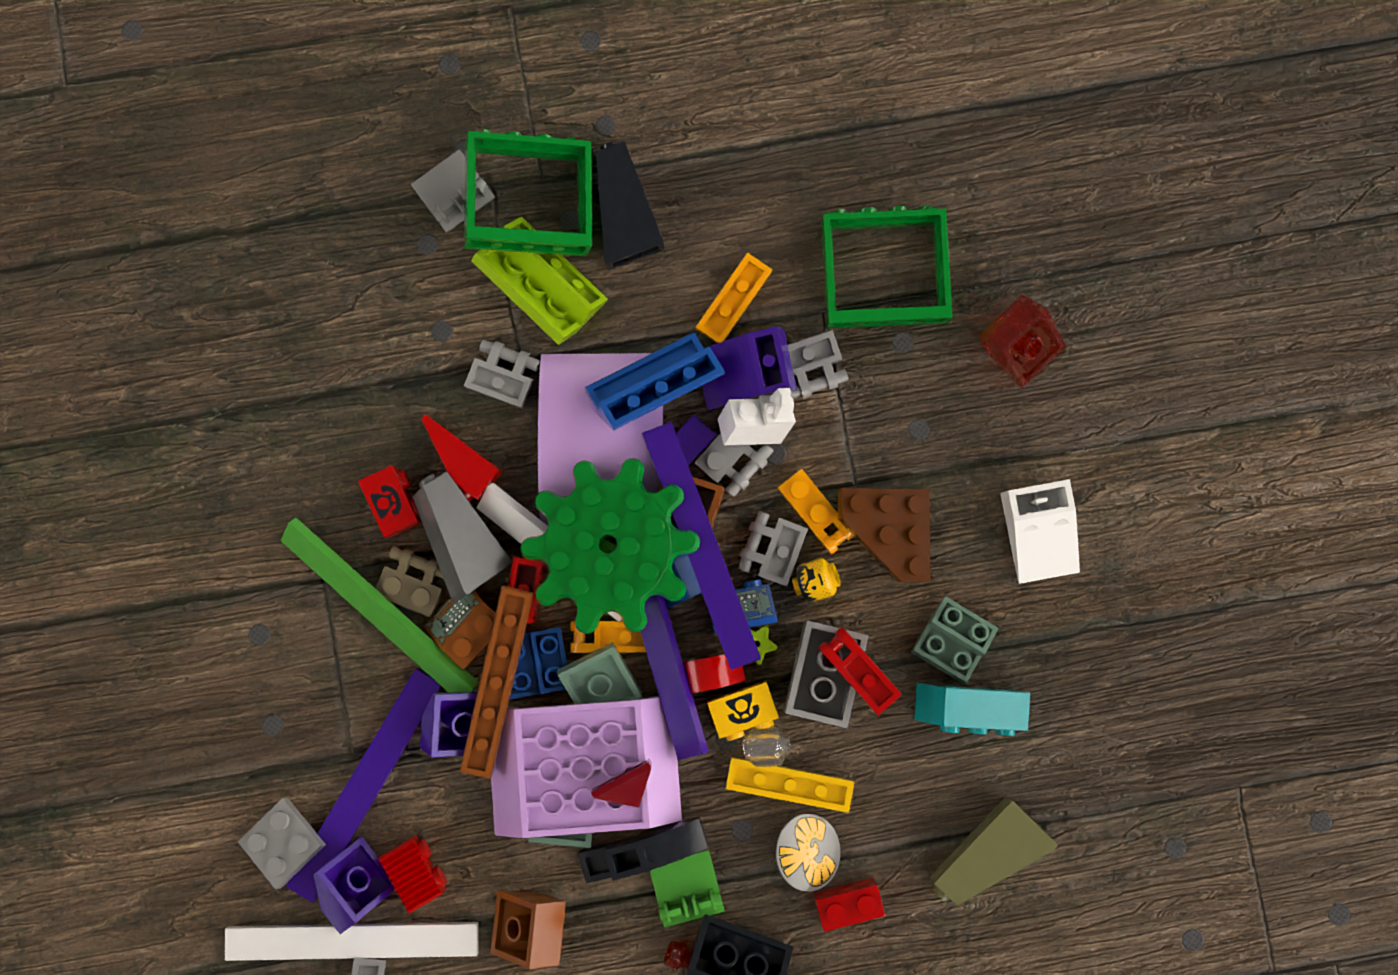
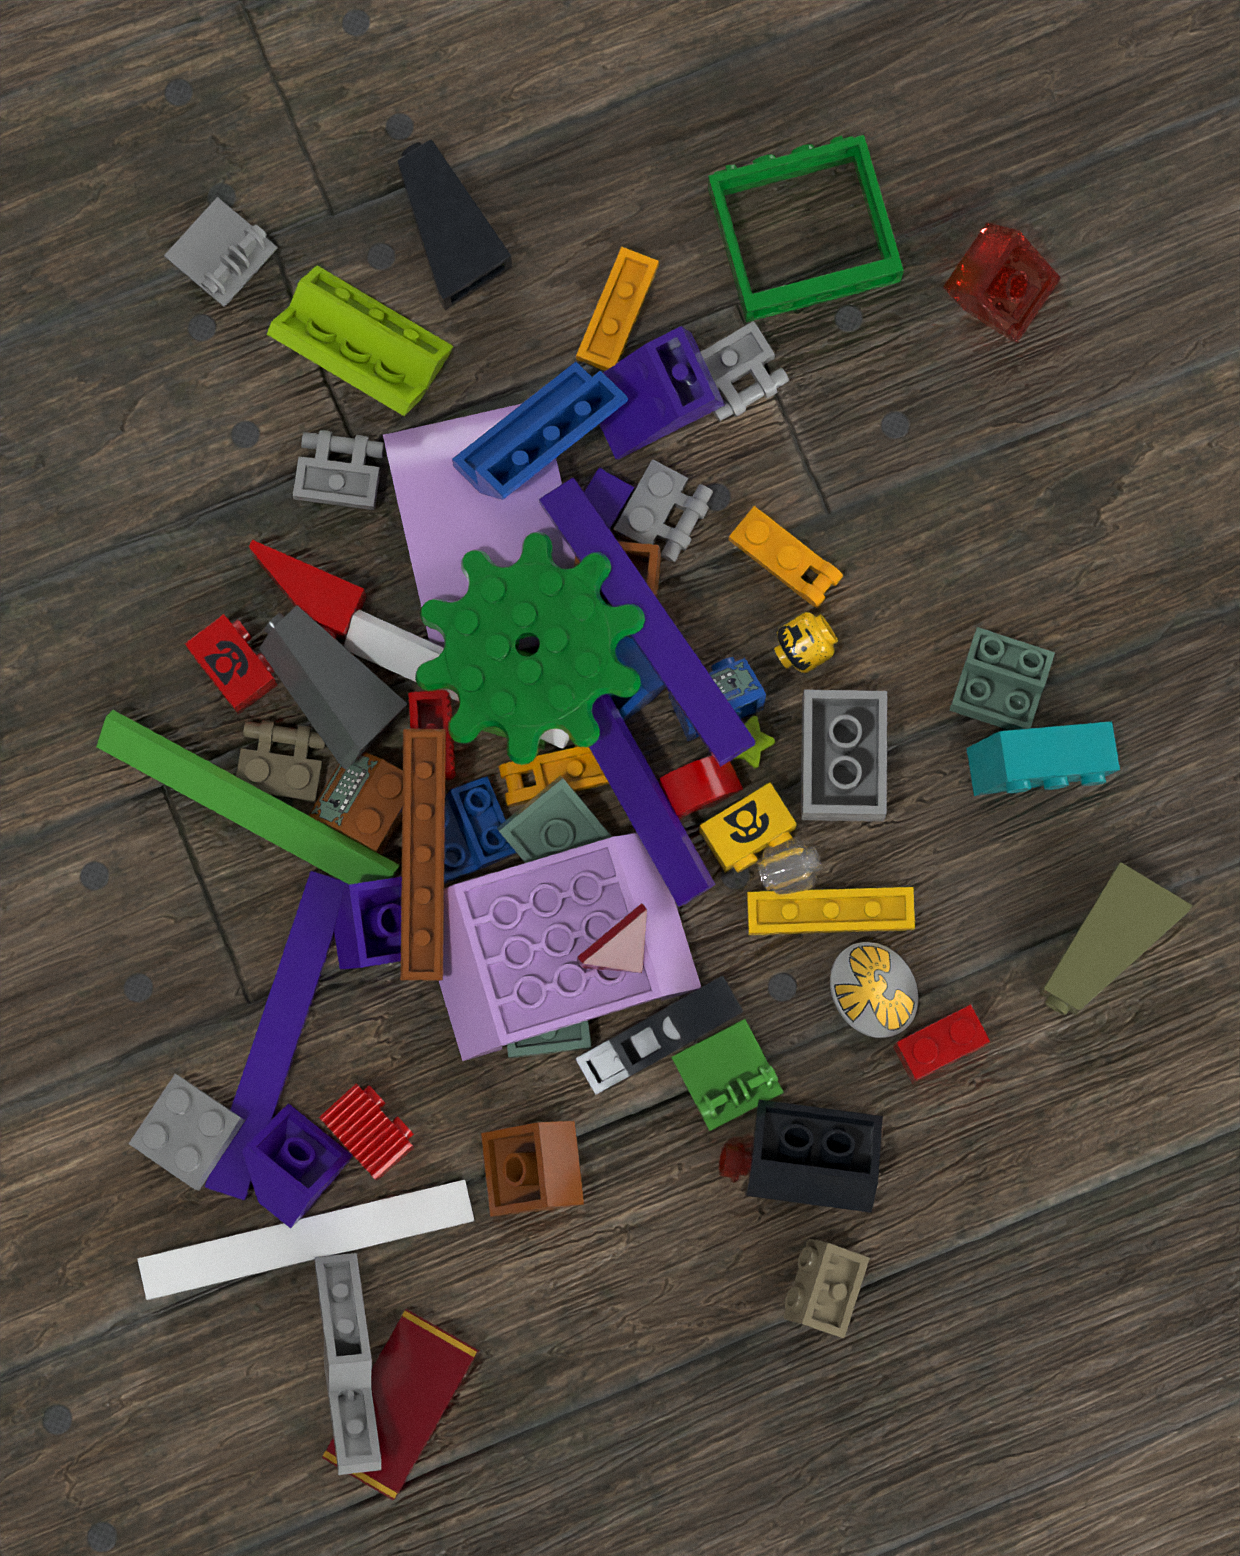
camera: 10 degrees left, 5 degrees down
(523, 240) = (330, 290): green window -> none
(757, 420) = (683, 453): white hinge -> none
(781, 552) = (752, 620): light grey plate -> none
(861, 672) = (886, 736): red plate -> none
(891, 528) = (887, 554): reddish brown plate -> none
(1042, 530) = (1081, 514): white slope -> none

